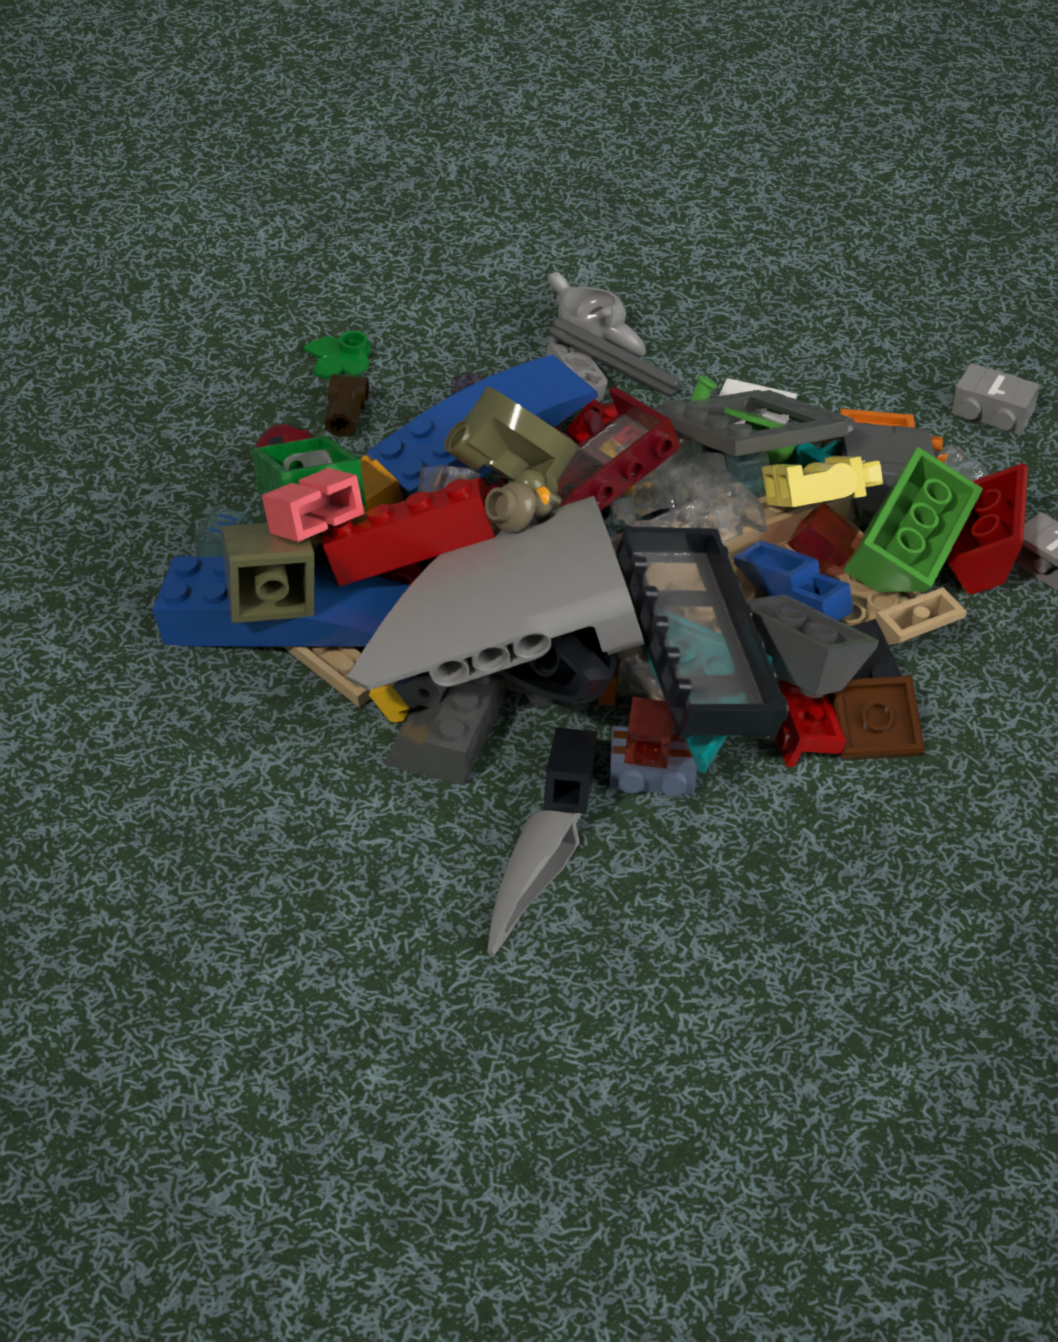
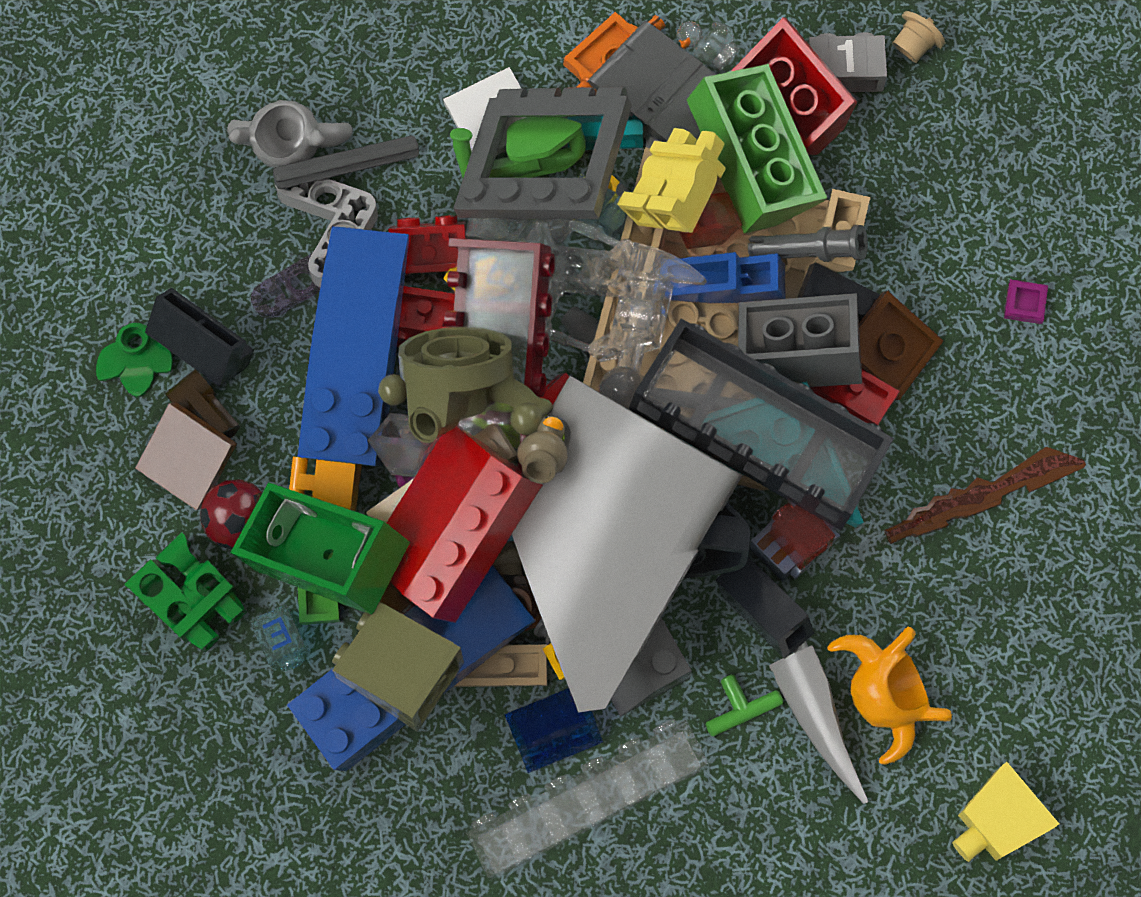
camera: 40 degrees left, 30 degrees up
(200, 482) = (192, 605): none -> green hips
(294, 777) = (586, 799): none -> clear brick
(306, 403) = (185, 455): none -> tile
(325, 499) = (397, 586): coral piece -> none
(327, 726) = (552, 730): none -> clear blue brick
(392, 362) = (197, 337): none -> black piece
(478, 827) = (742, 710): none -> bright green piece
(579, 1041) = (1002, 817): none -> light yellow torso
(598, 890) = (889, 689): none -> light orange piece
(836, 861) = (983, 495): none -> reddish brown sword
(890, 599) = (824, 244): none -> dark grey pin
(1025, 782) = (1025, 301): none -> magenta tile

